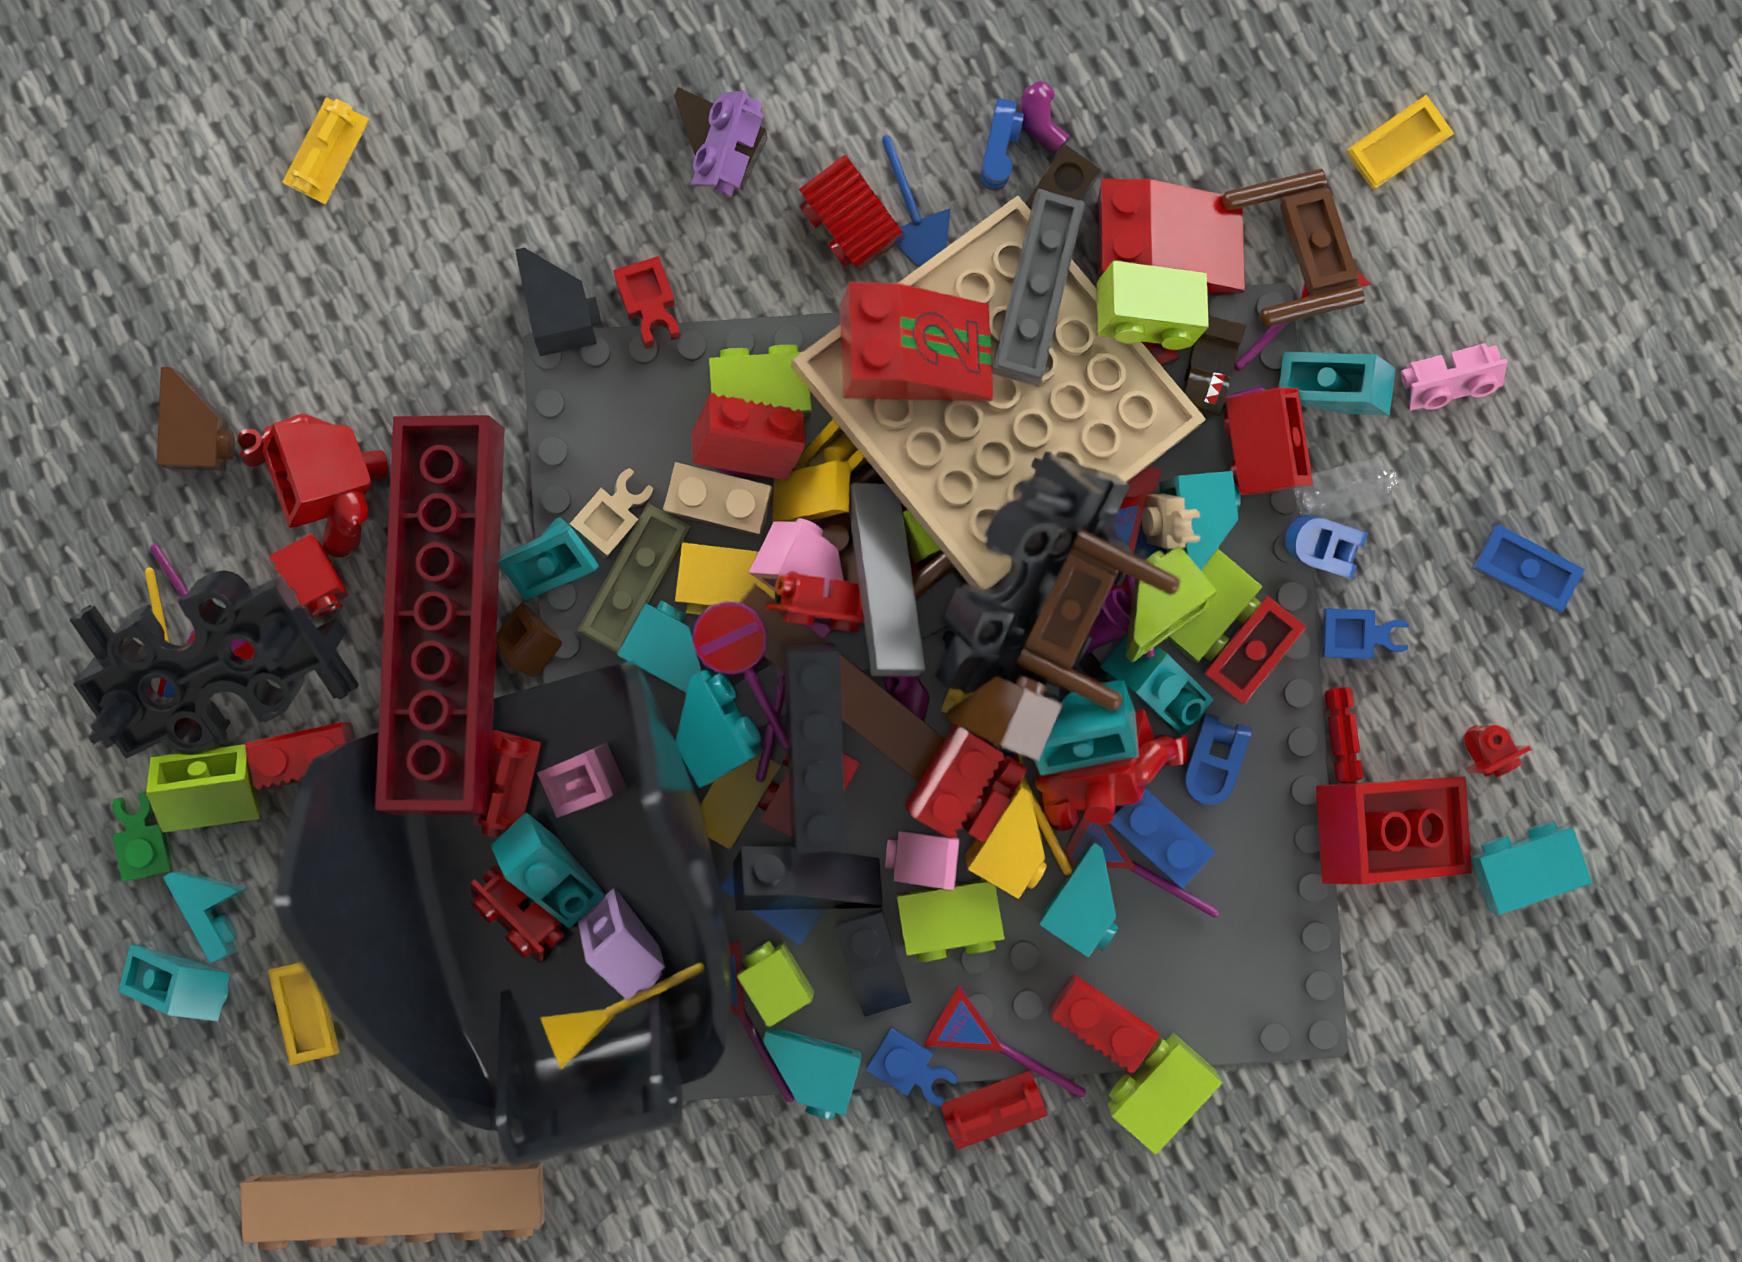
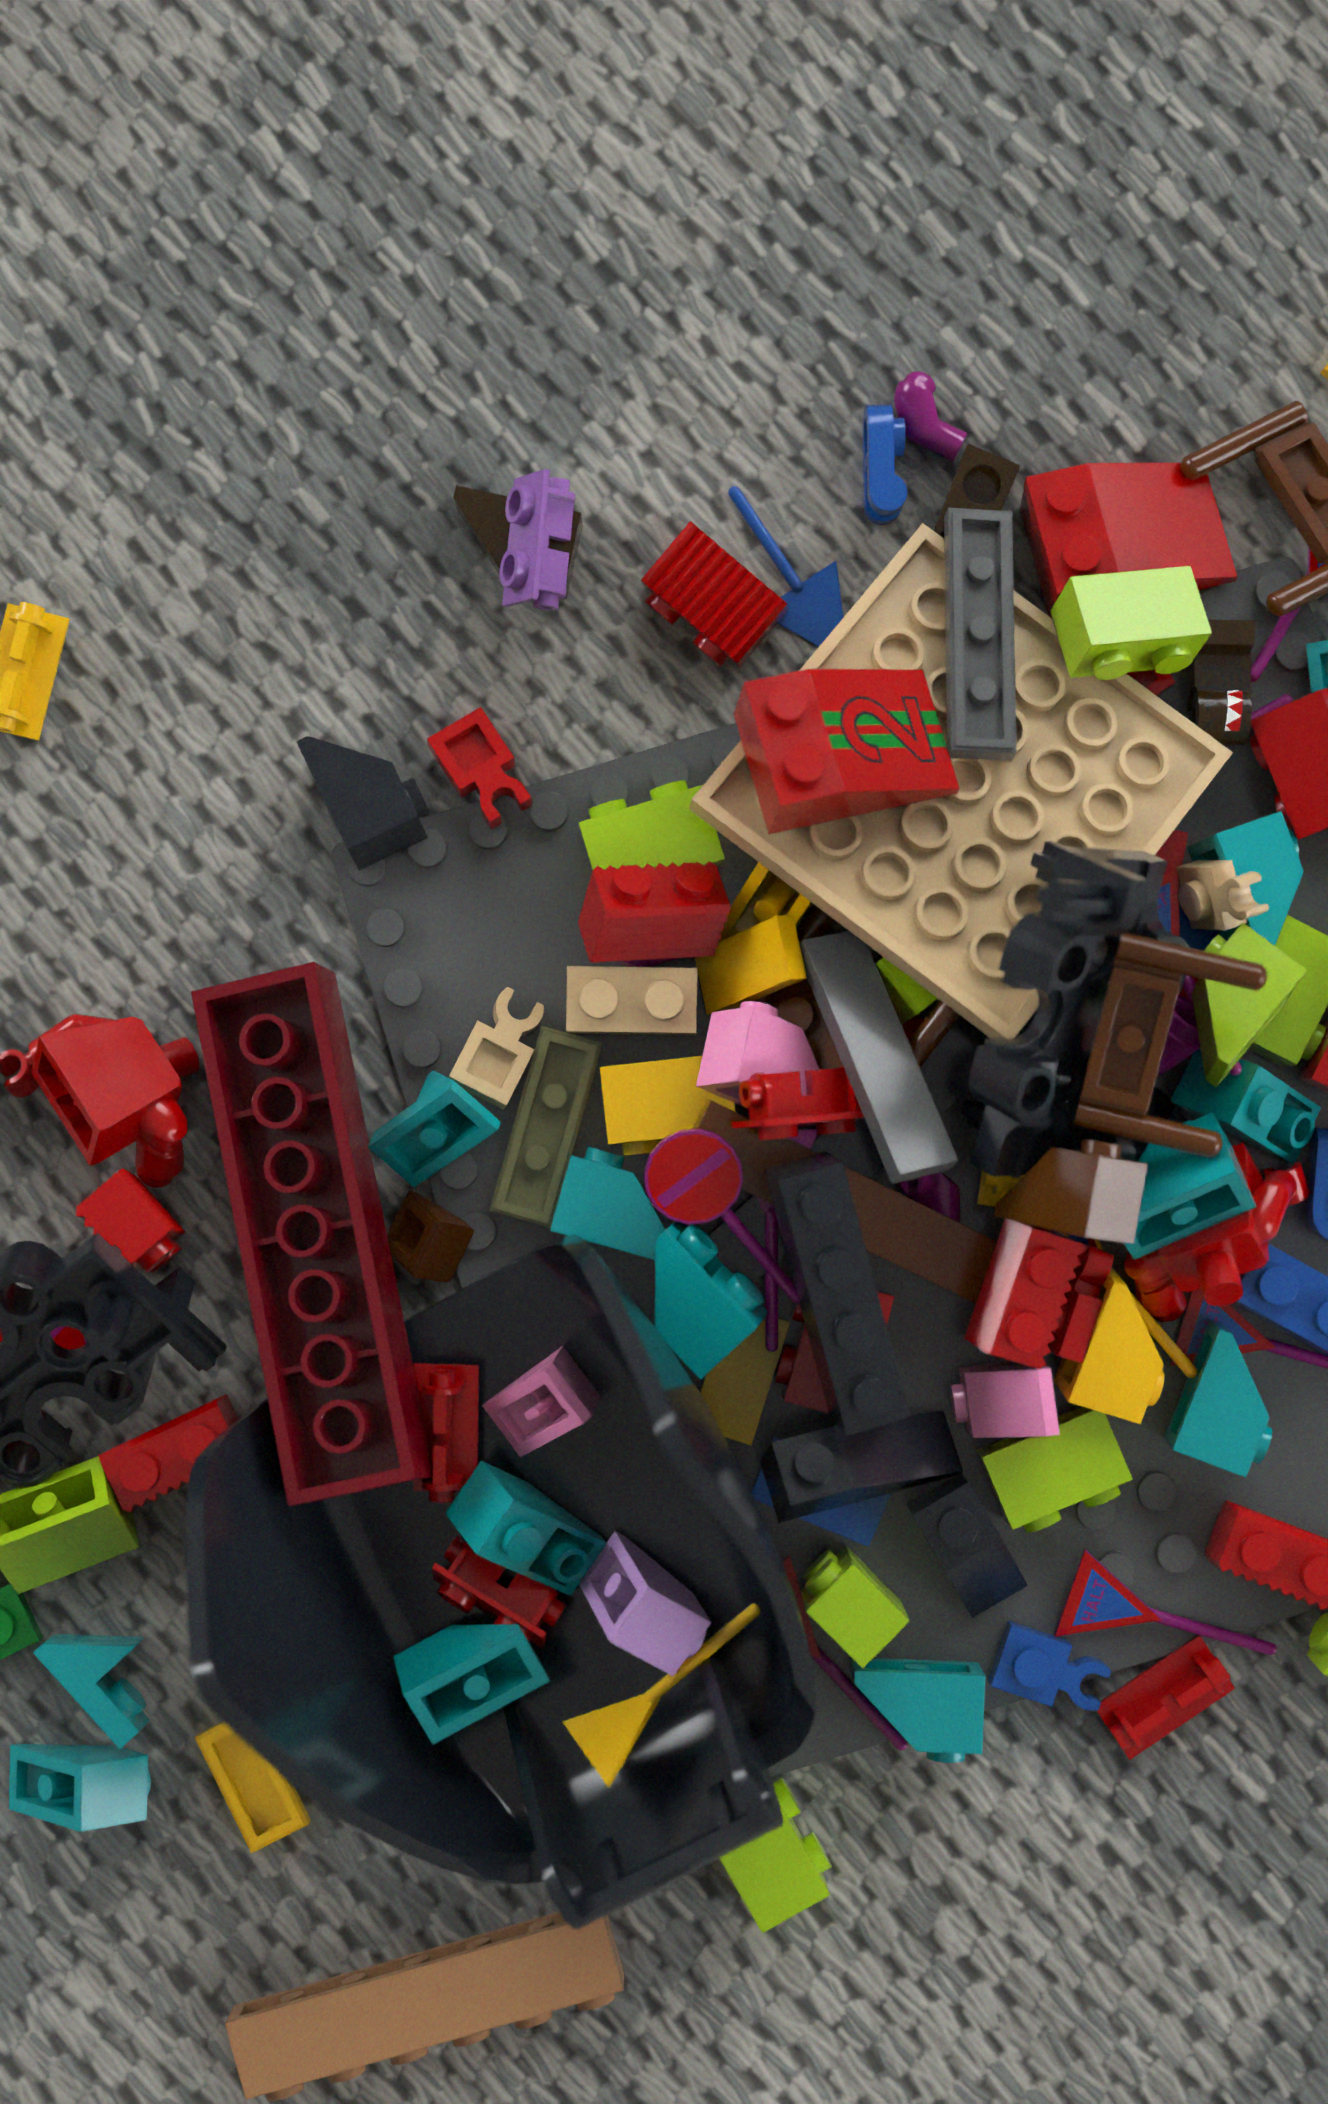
camera: 15 degrees left, 0 degrees up
(478, 967) = (467, 1675): none -> teal slope
(673, 1161) = (781, 1869): none -> lime brick

